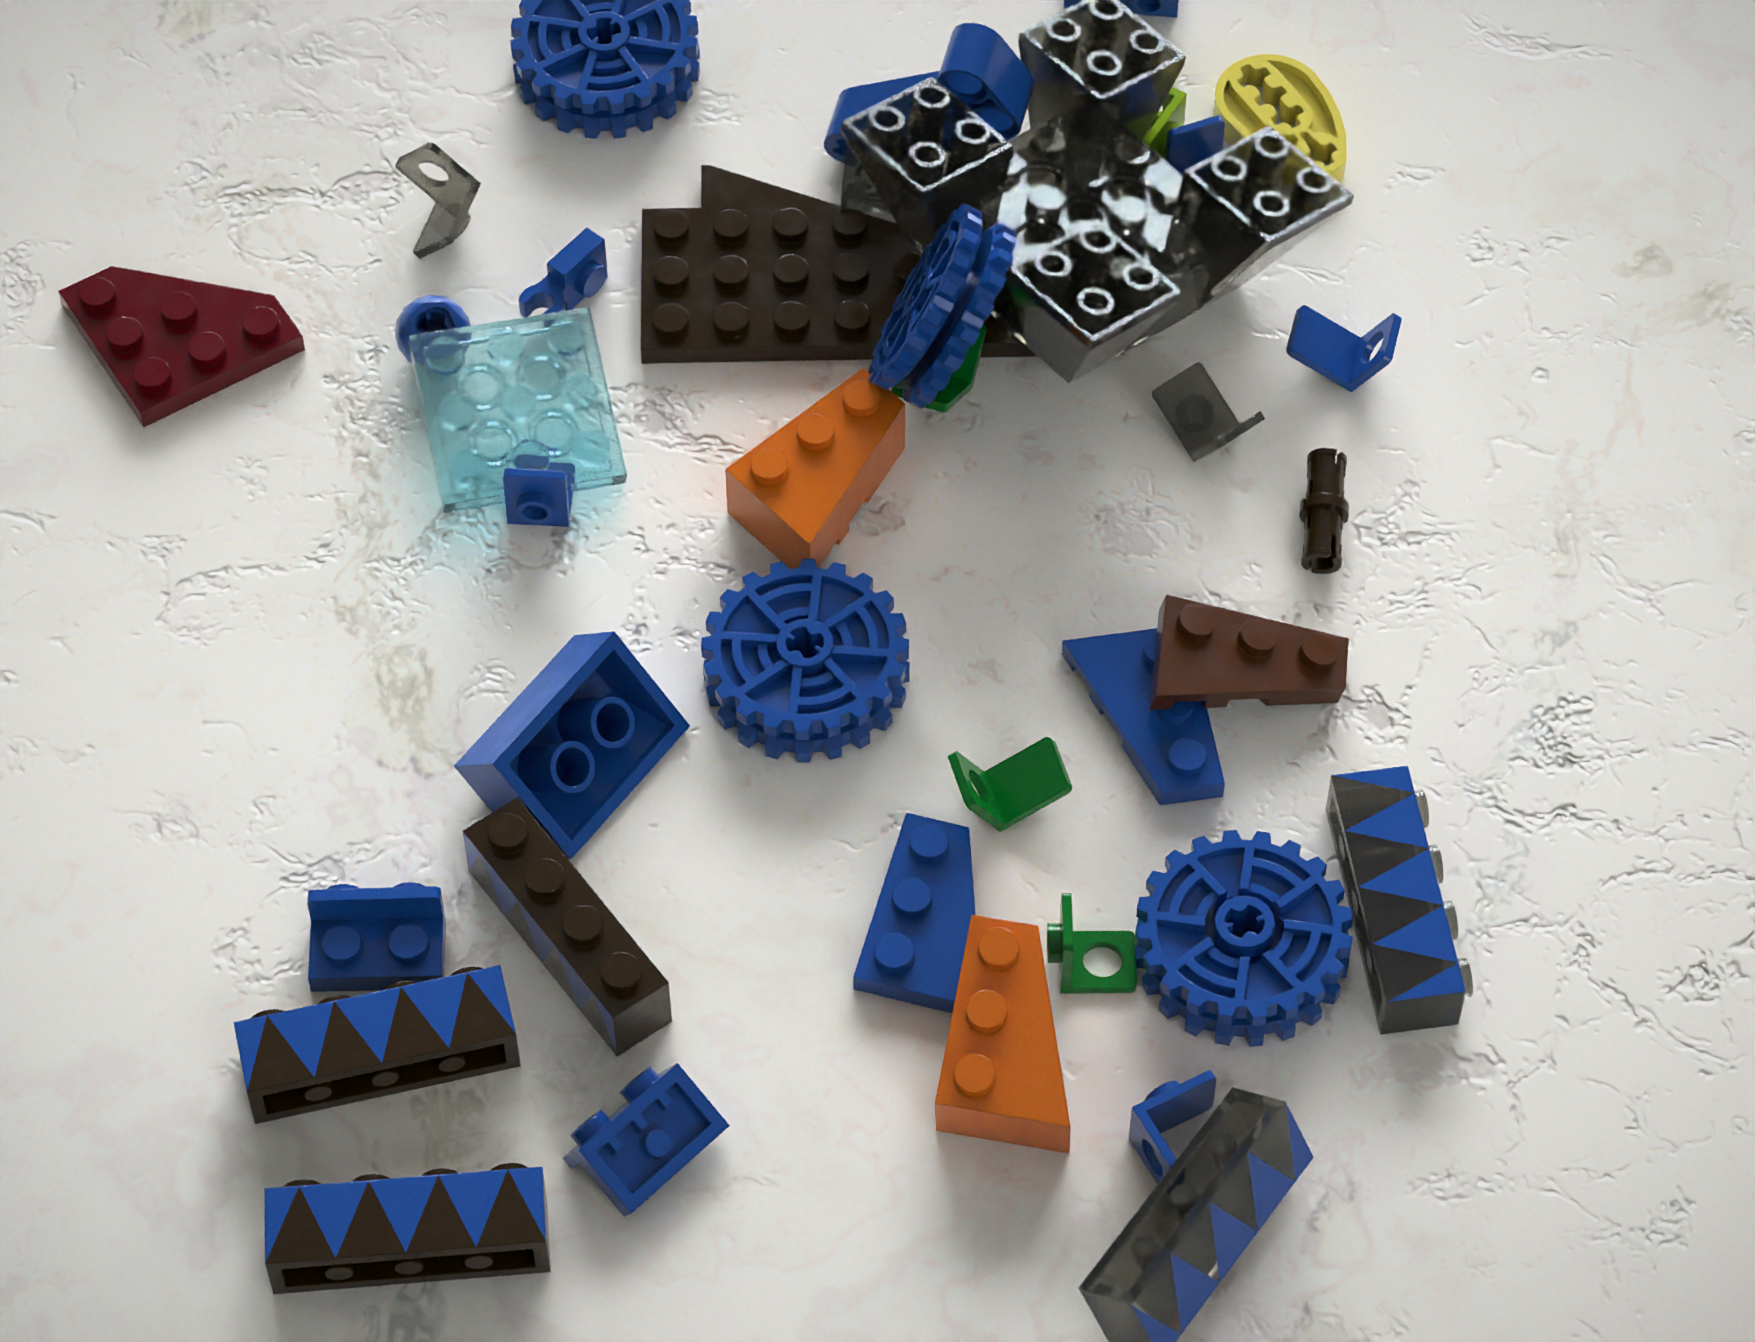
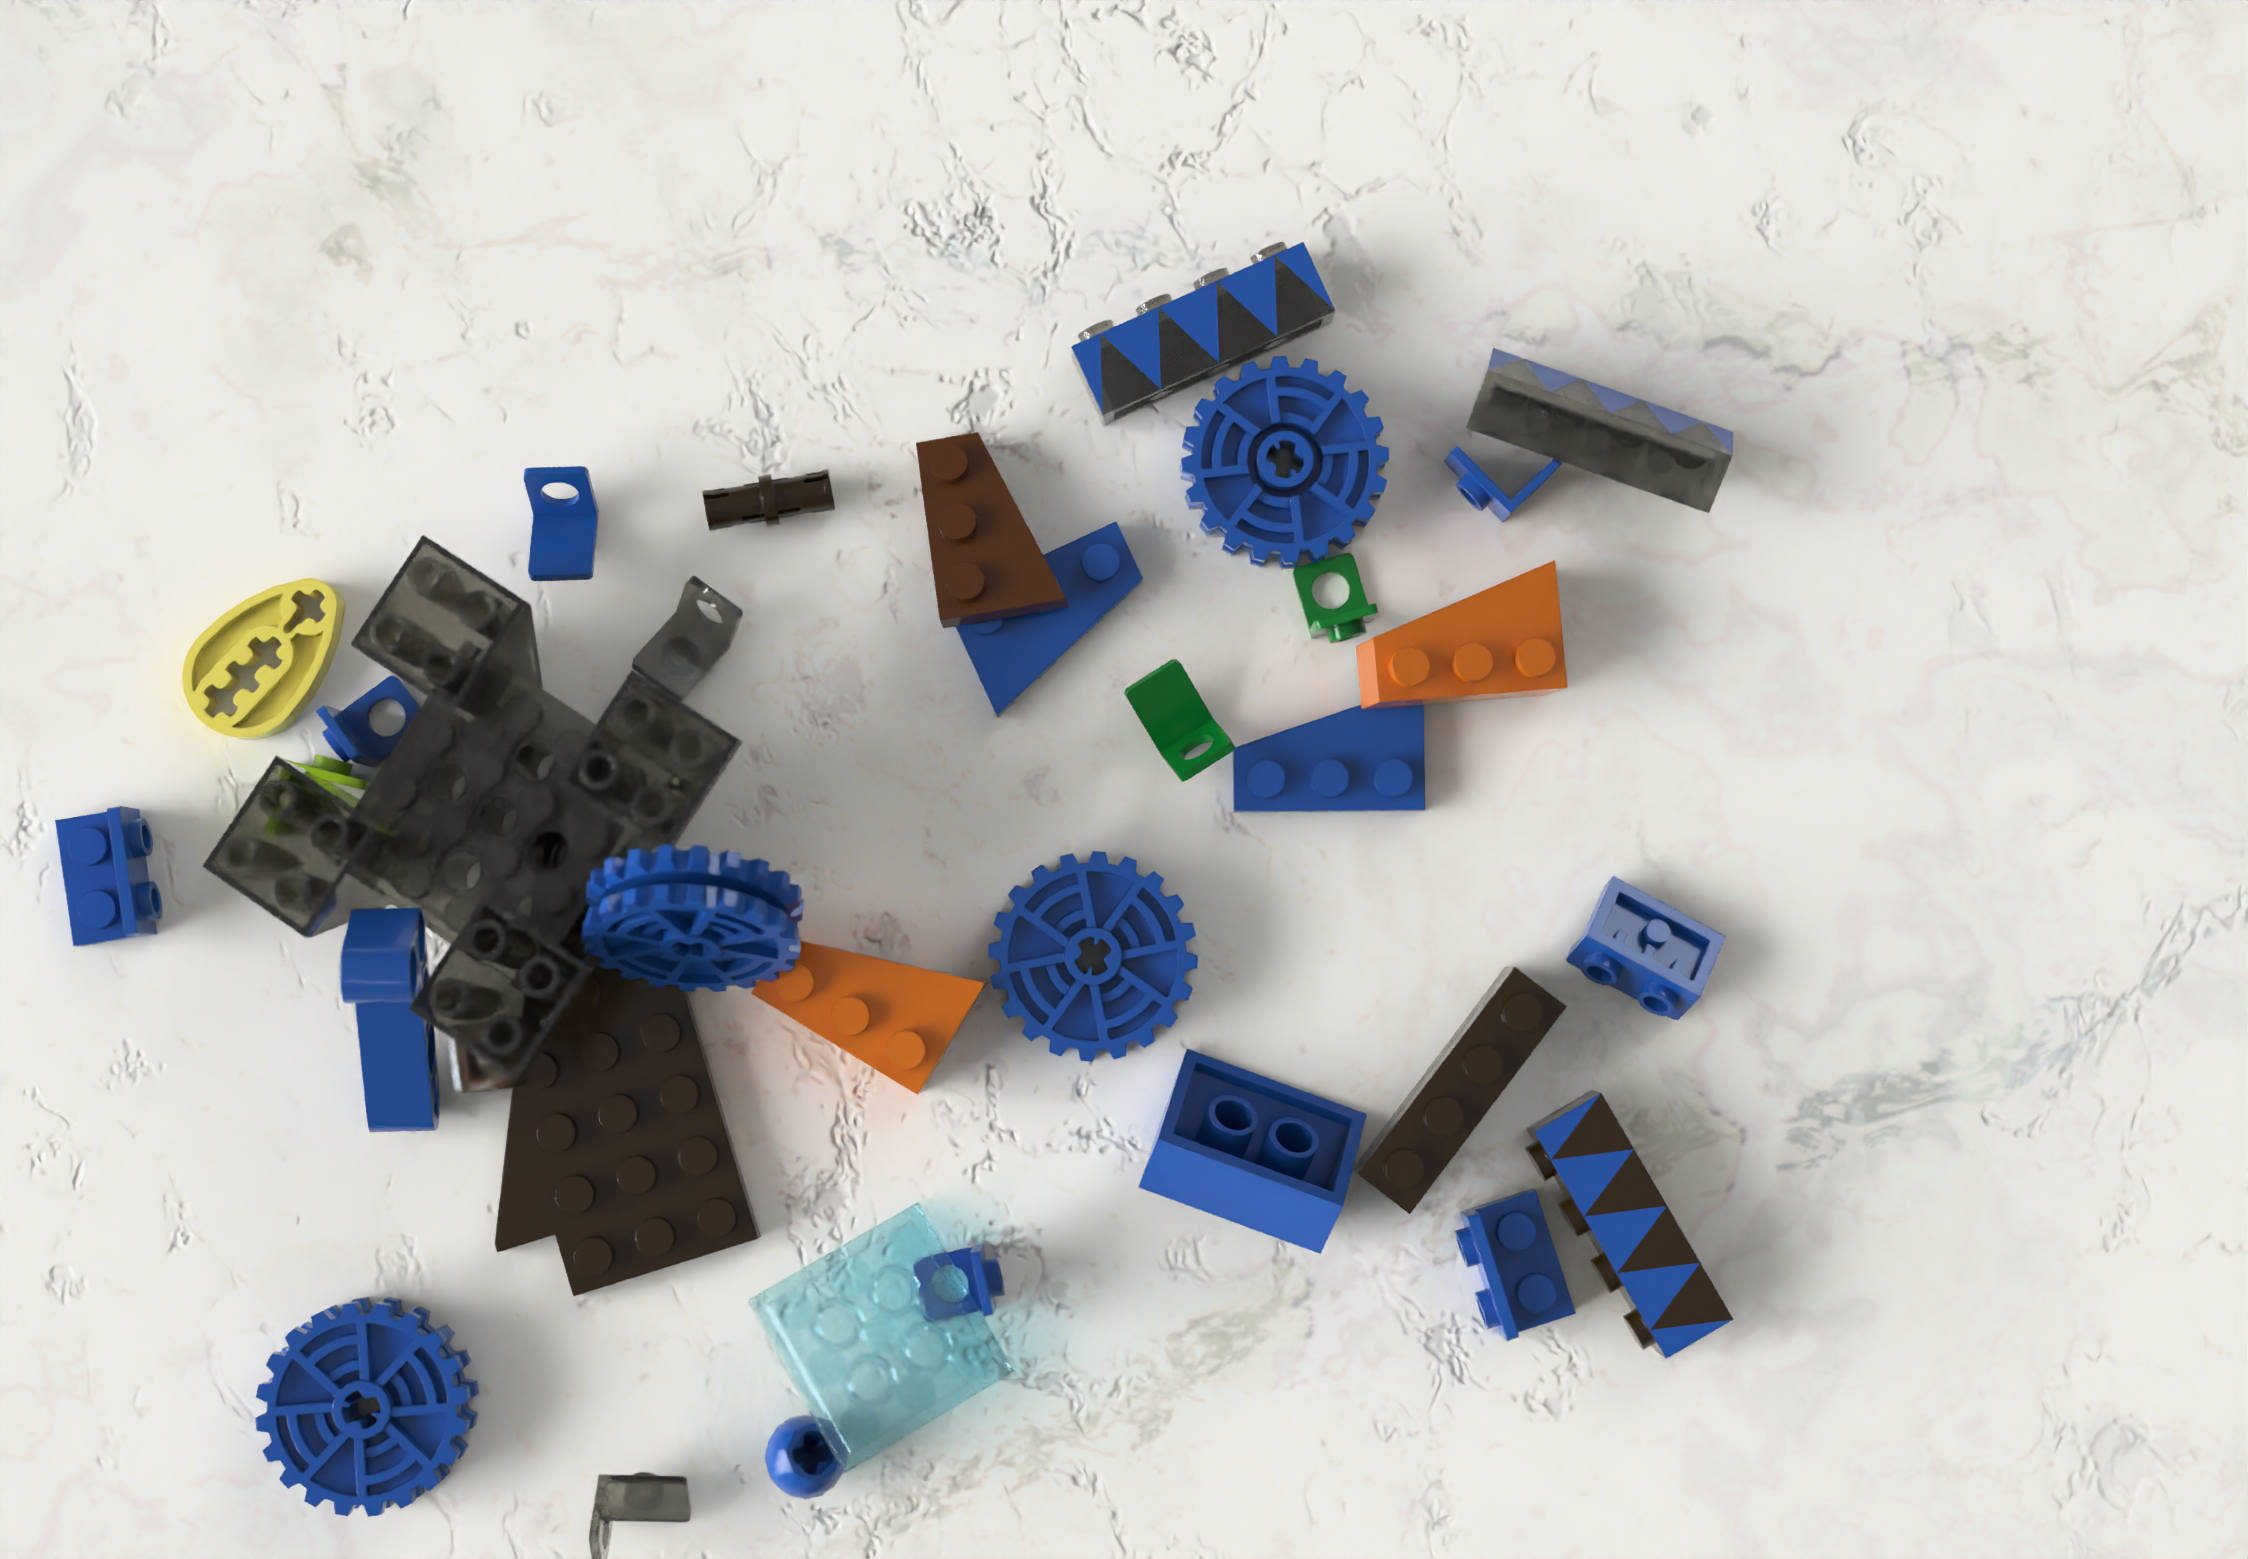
camera: 110 degrees left, 30 degrees up
(406, 1229) = (1803, 1131): dark brown brick -> none
(572, 275) = (684, 1335): blue plate -> none

